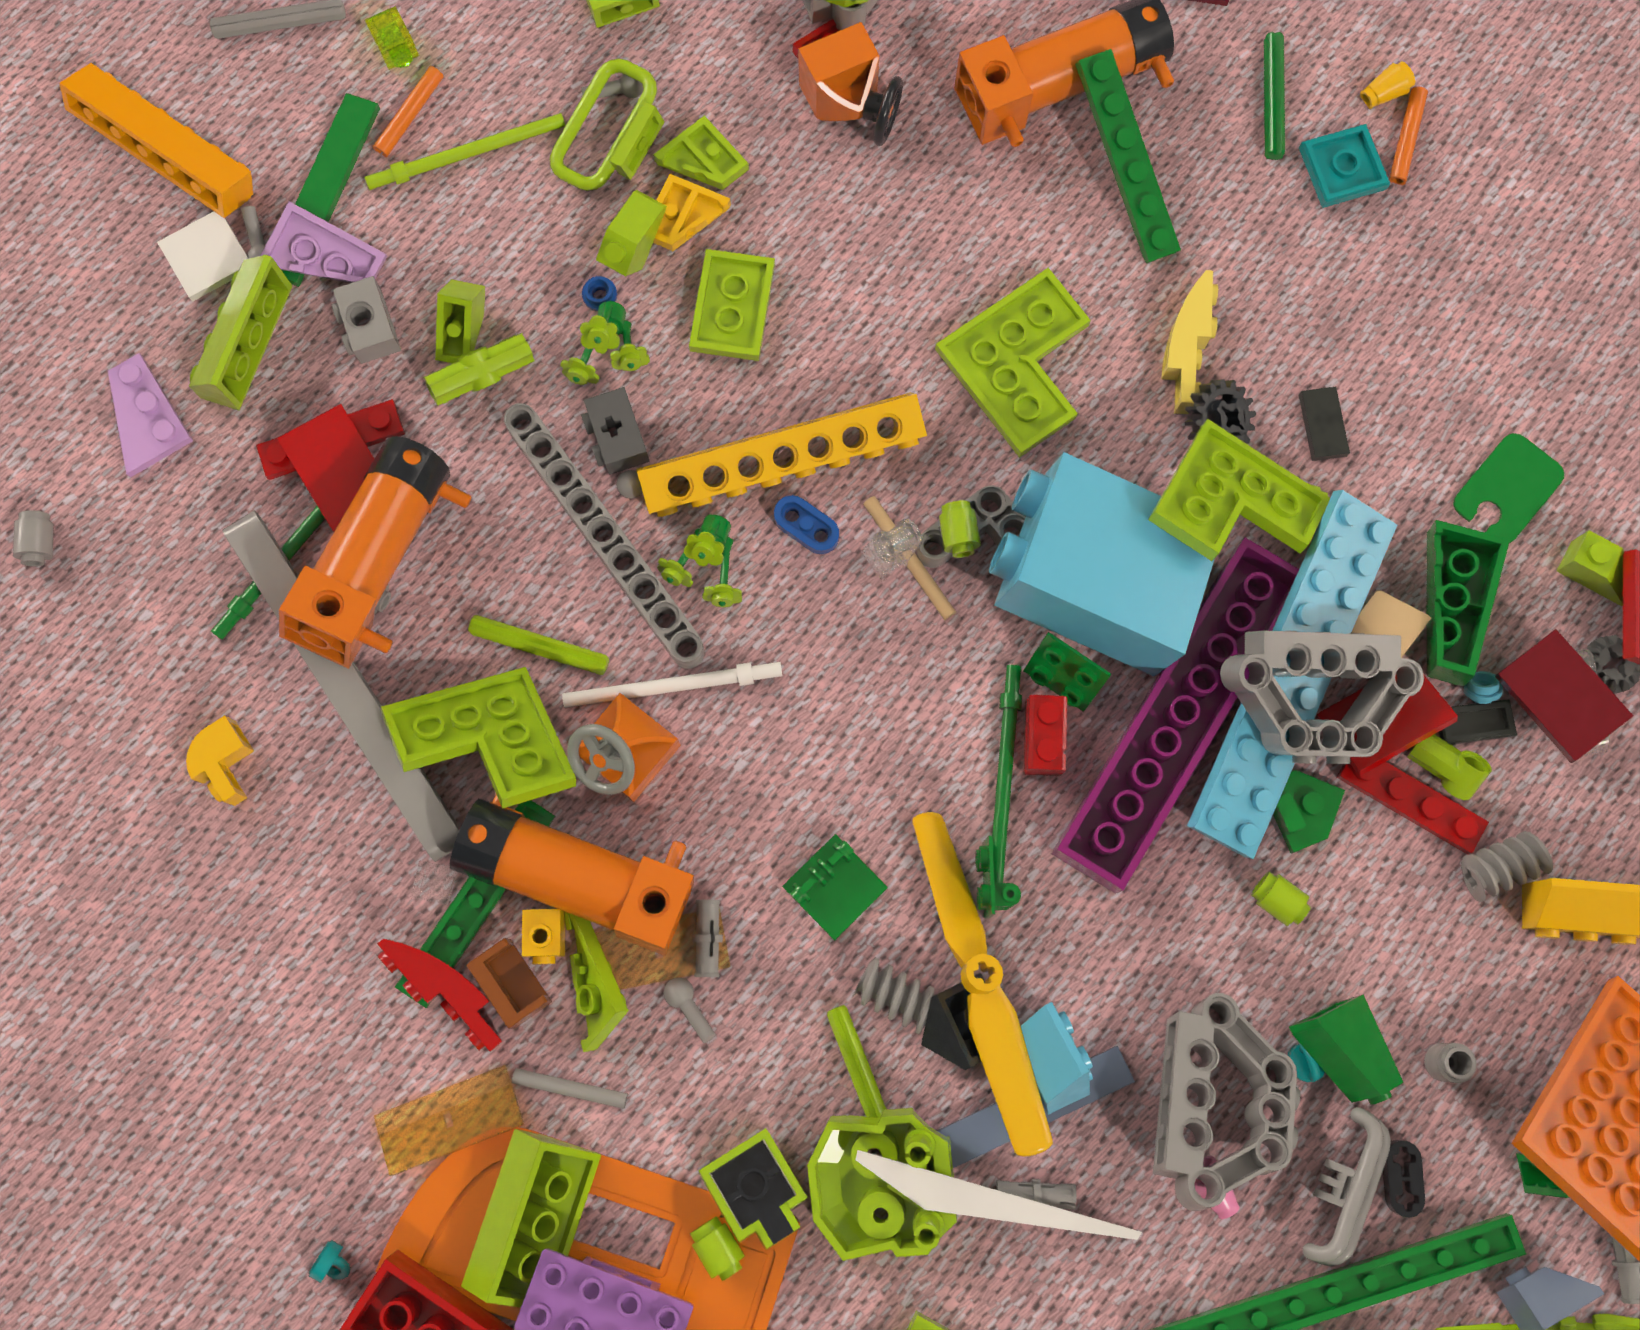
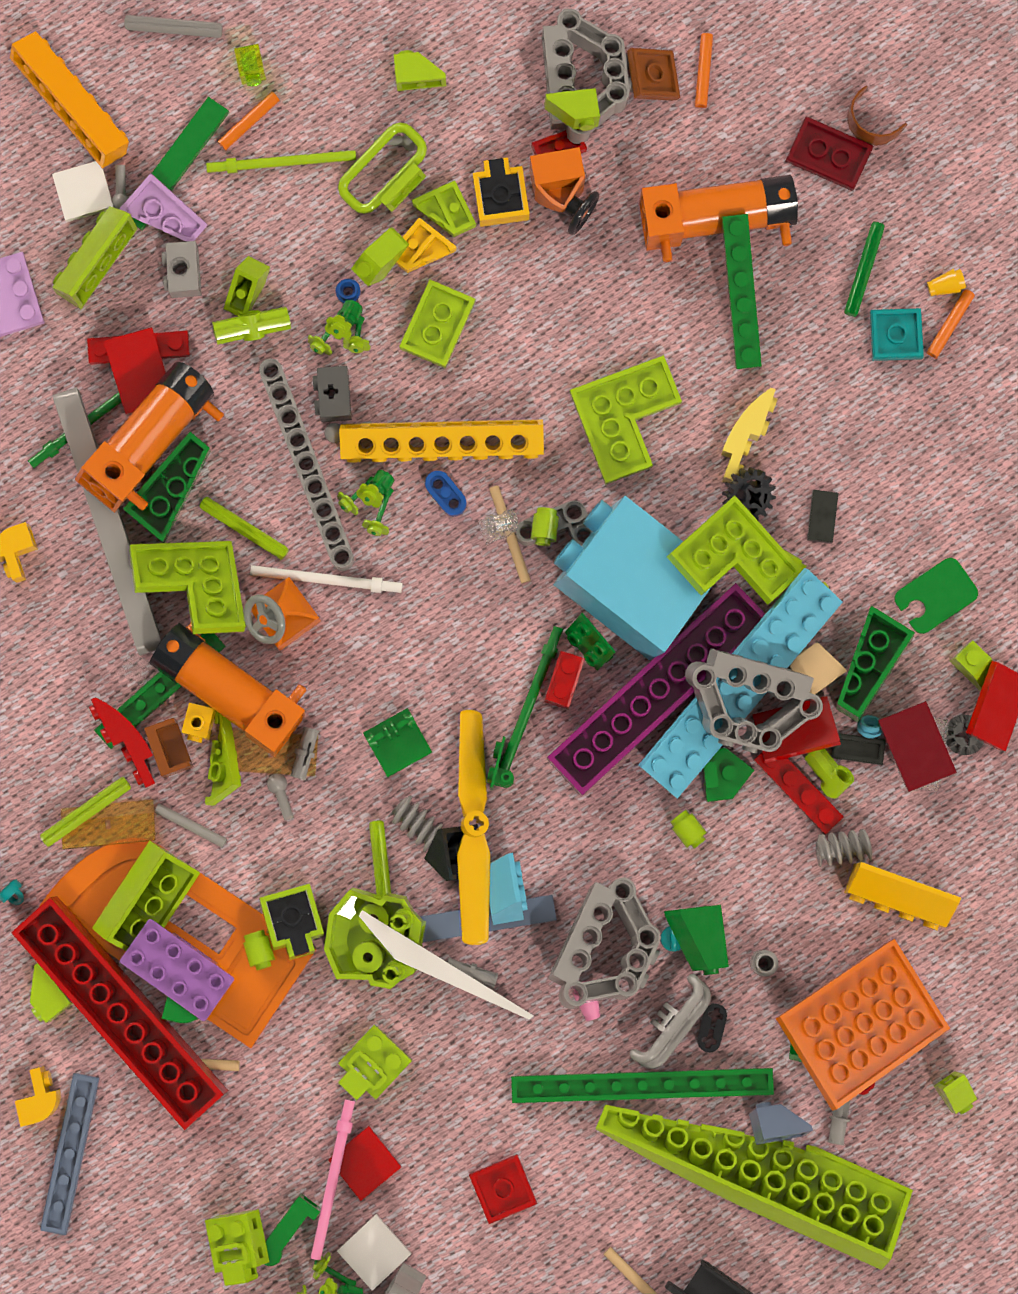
camera: 15 degrees right, 5 degrees up
(409, 1111) = (85, 811): none -> lime axle
(419, 614) = (170, 487): none -> green wedge
(770, 117) = (500, 193): none -> piece

